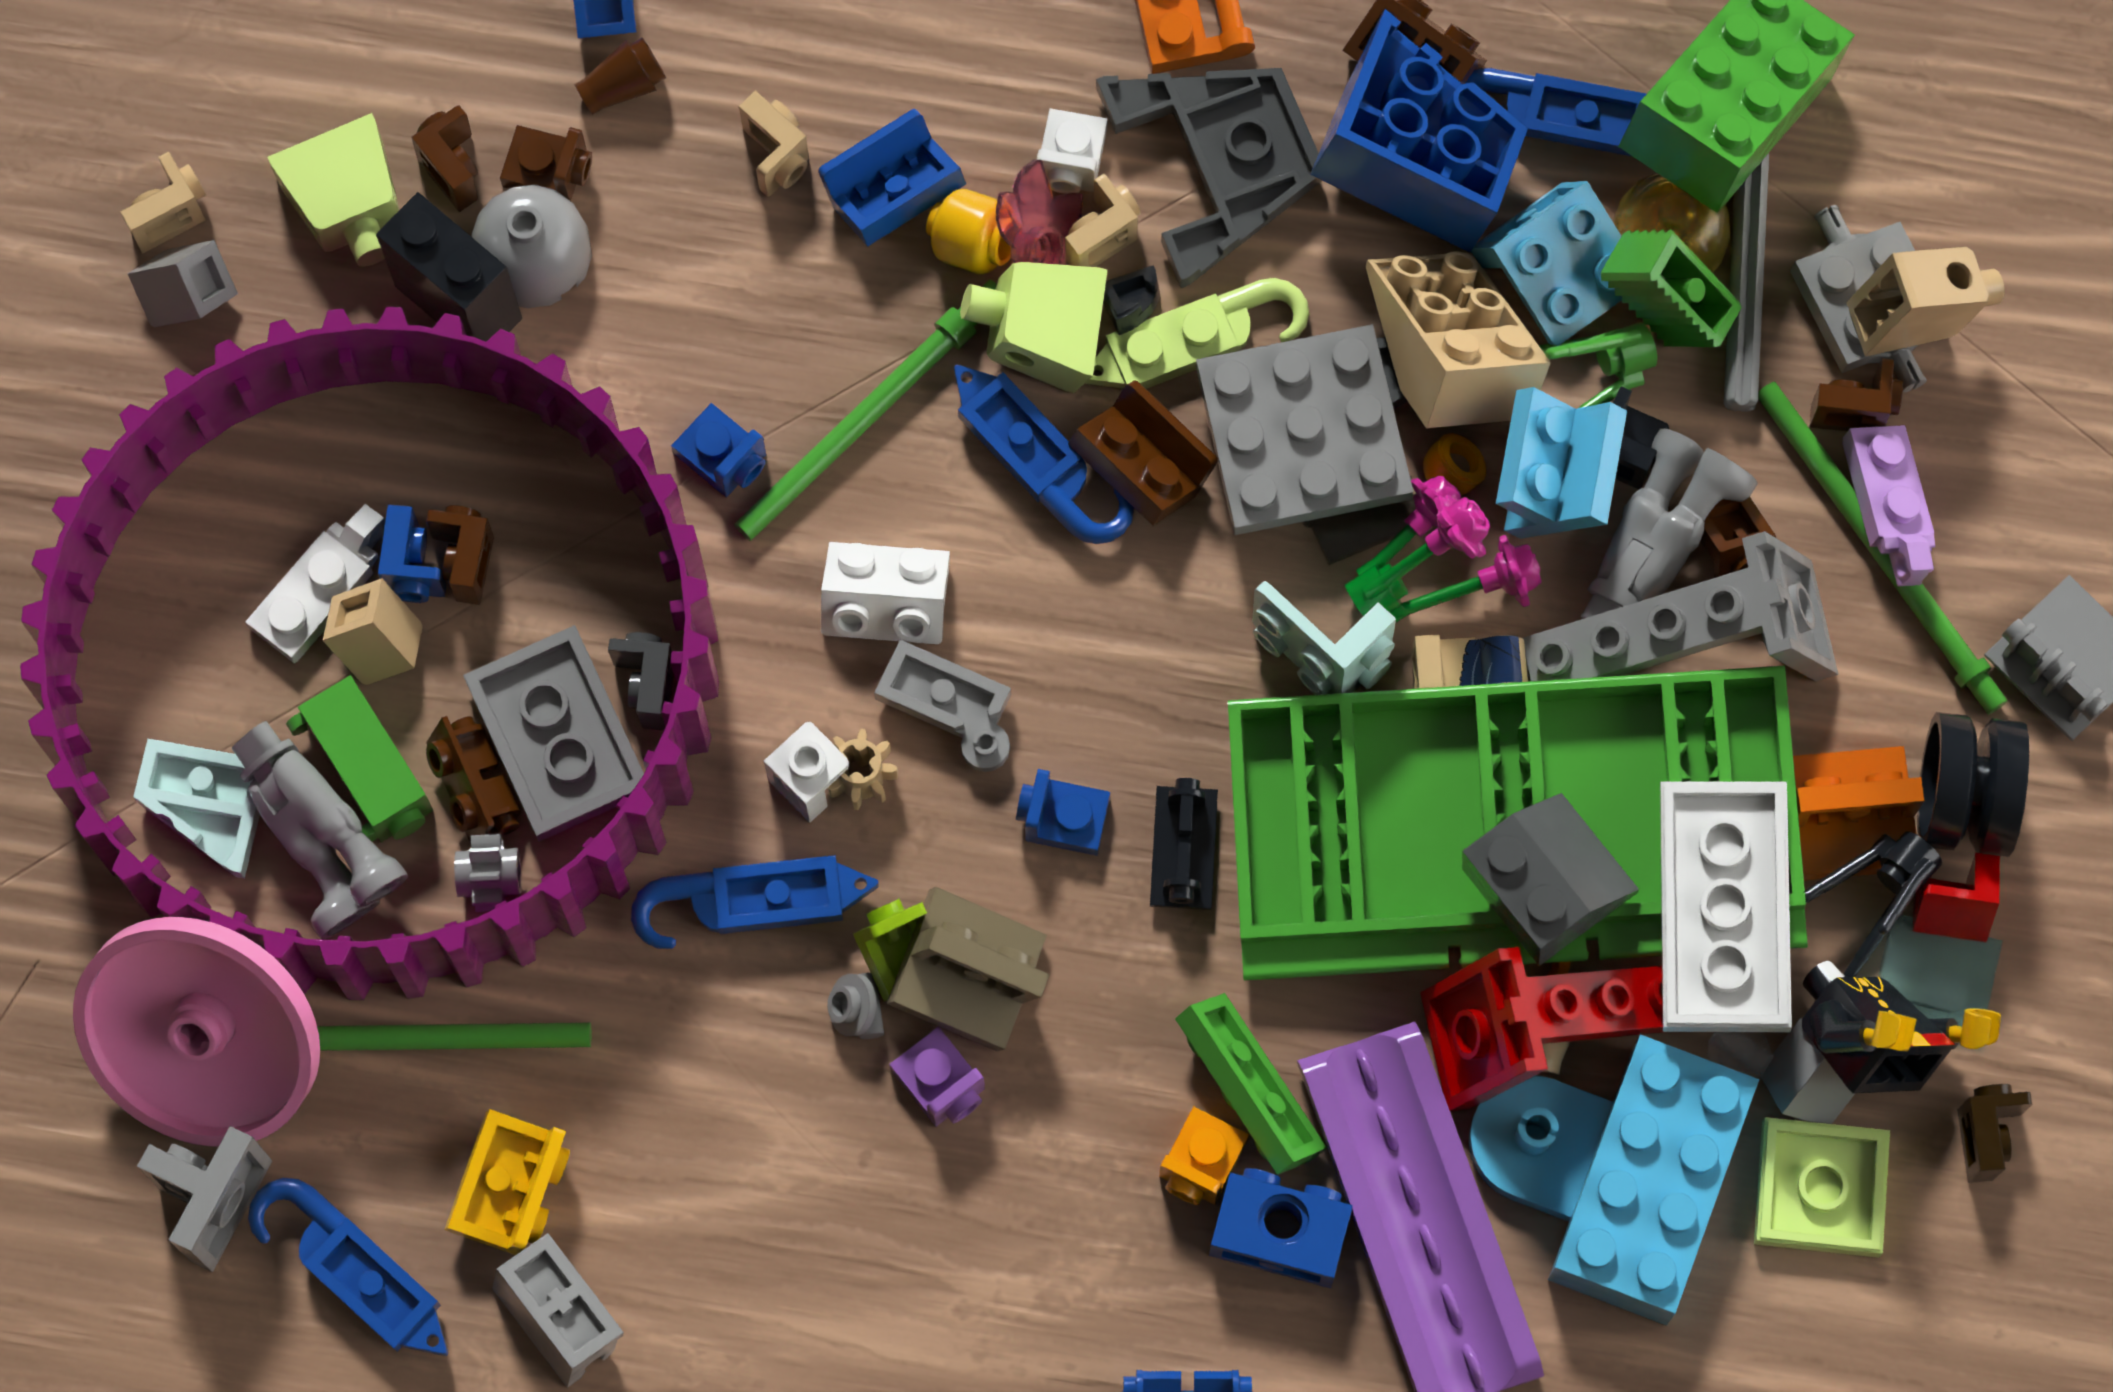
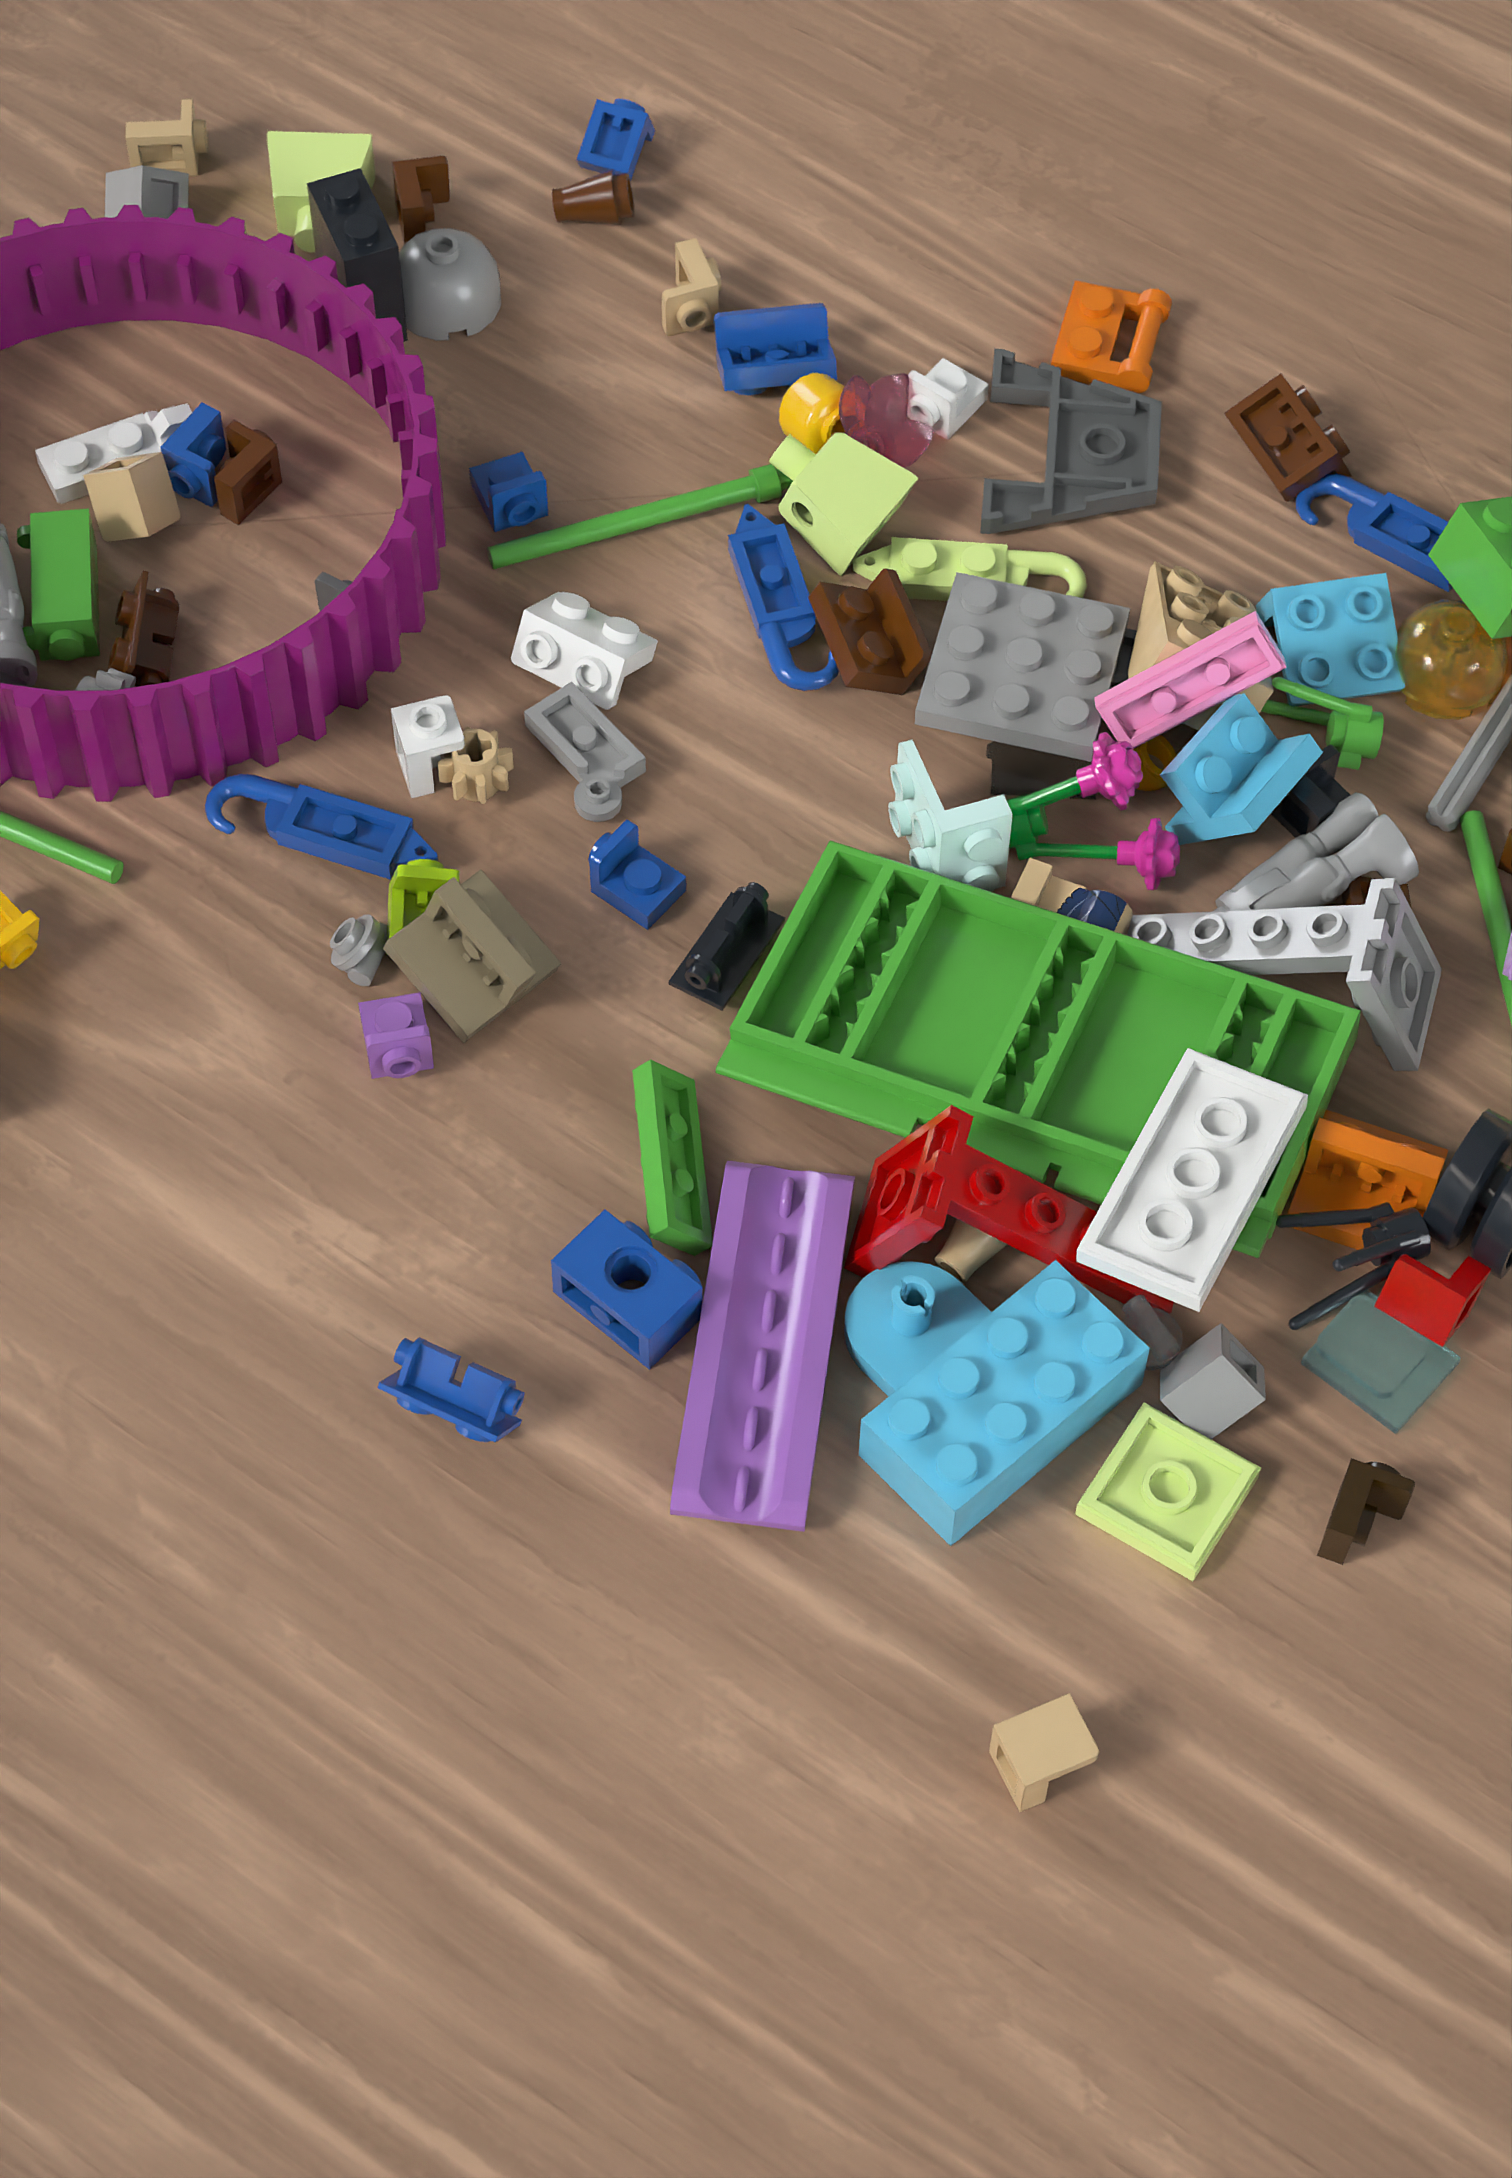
camera: 25 degrees right, 15 degrees down
(547, 160) = (507, 236): reddish brown bracket -> none
(555, 732) = (233, 609): light grey plate -> none
(1103, 235) = (938, 459): tan bracket -> none
(1131, 298) = (932, 519): black tile -> none
(1202, 1158) = (581, 1199): light orange bracket -> none
(1420, 140) = (1250, 493): blue wedge -> none
(1478, 395) = (1191, 681): none -> bright pink tile
(1547, 876) = (1036, 1079): dark grey slope -> none
(1670, 289) = (1418, 686): bright green brick -> none
(1879, 1037) = (1292, 1373): black torso -> none

